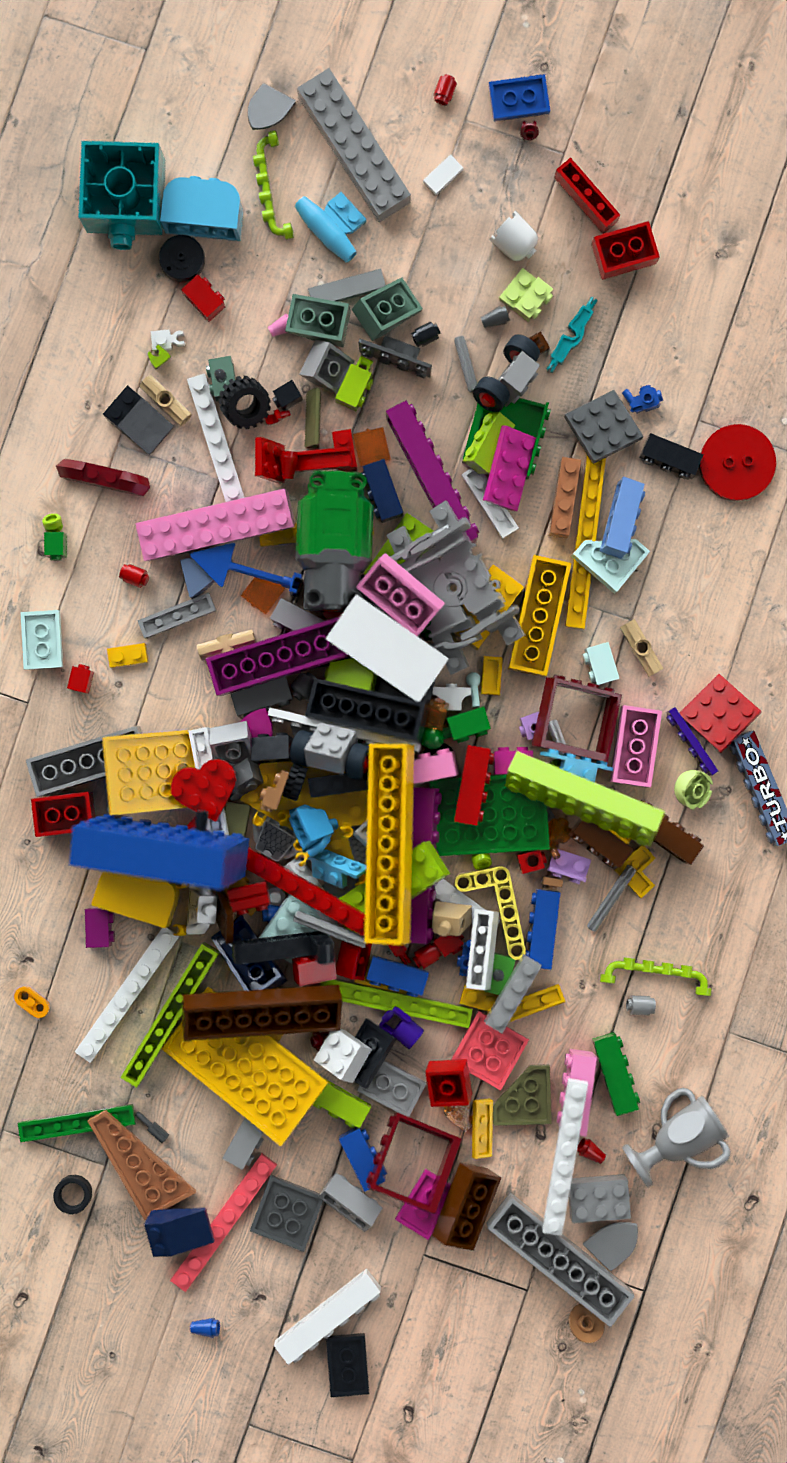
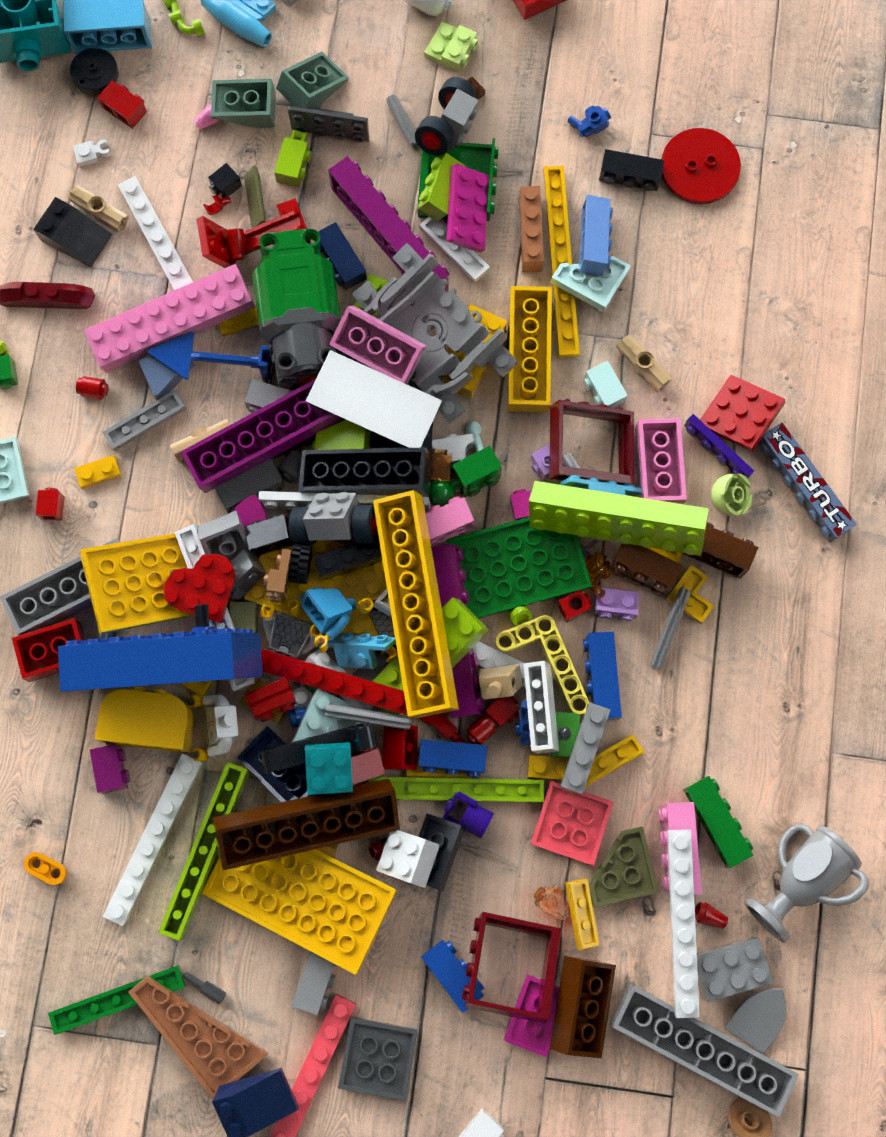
camera: 15 degrees left, 10 degrees down
(64, 1207) = (107, 1092): black tyre -> none
(161, 359) = (87, 170): lime tile -> none
(220, 371) = (155, 177): sand green piece -> none
(224, 916) = (247, 726): reddish brown tile -> none
(251, 415) = (196, 186): black tyre -> none
(262, 594) = (233, 382): clear orange piece -> none
(288, 970) = (328, 768): none -> teal brick
(326, 366) = (259, 145): light grey slope -> none
(343, 1105) = (417, 917): lime brick -> none
(349, 287) = (273, 67): light grey tile -> none
(350, 1202) = (448, 1029): light grey brick -> none
(371, 446) = (320, 214): clear orange piece -> none
(395, 1088) = (473, 887): light grey plate -> none
(425, 334) = (356, 99): black brick -> none
(448, 1083) = (533, 866): red brick -> none
(473, 784) = (494, 533): red brick -> none
(491, 675) = (491, 421): yellow tile -> none
(495, 317) = (425, 71): dark grey cone -> none
(552, 883) = (602, 624): medium nougat plate -> none
(567, 343) = (500, 83): teal piece -> none
(603, 426) = (556, 153): dark grey plate -> none
(640, 1005) = (728, 740): light grey brick -> none
(666, 969) = (747, 695): lime bar -> none

